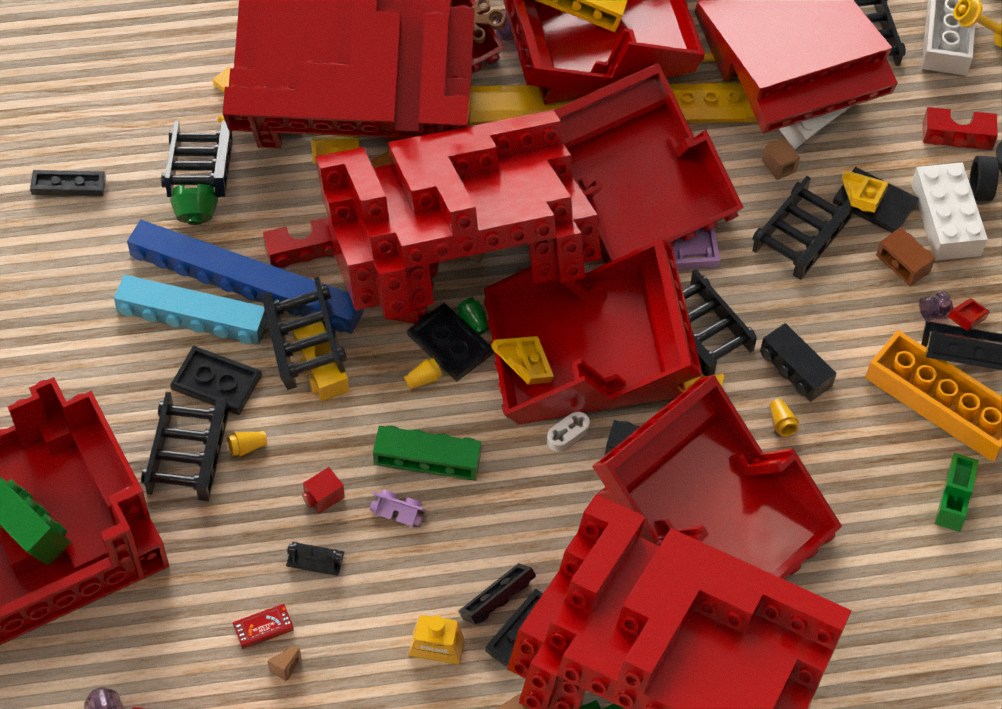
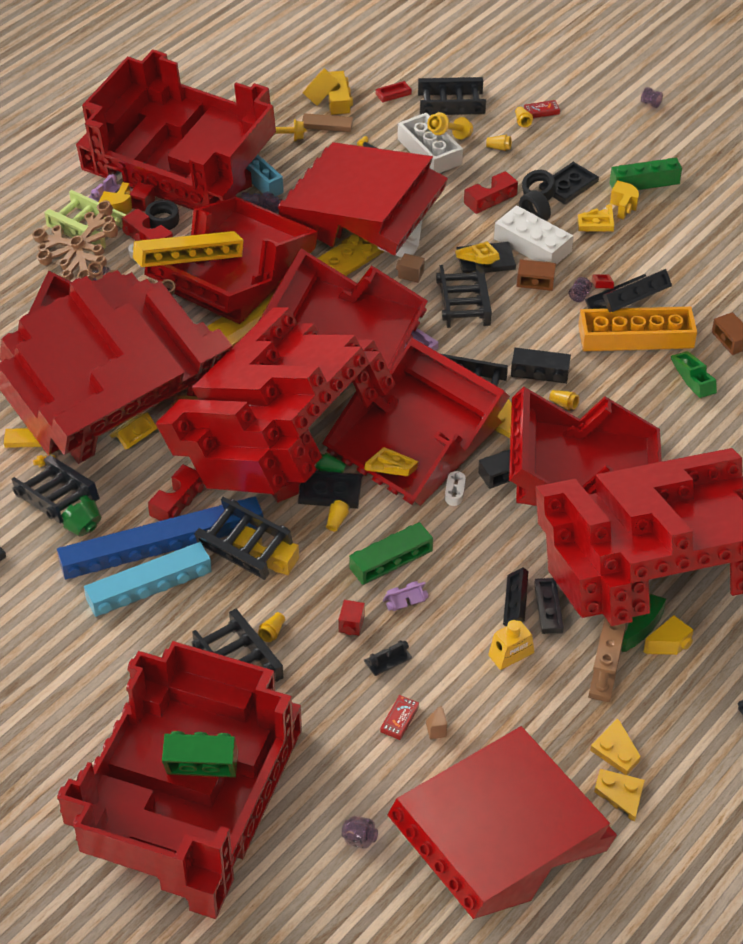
camera: 40 degrees left, 10 degrees down
(214, 376) = (207, 608): black tile -> none

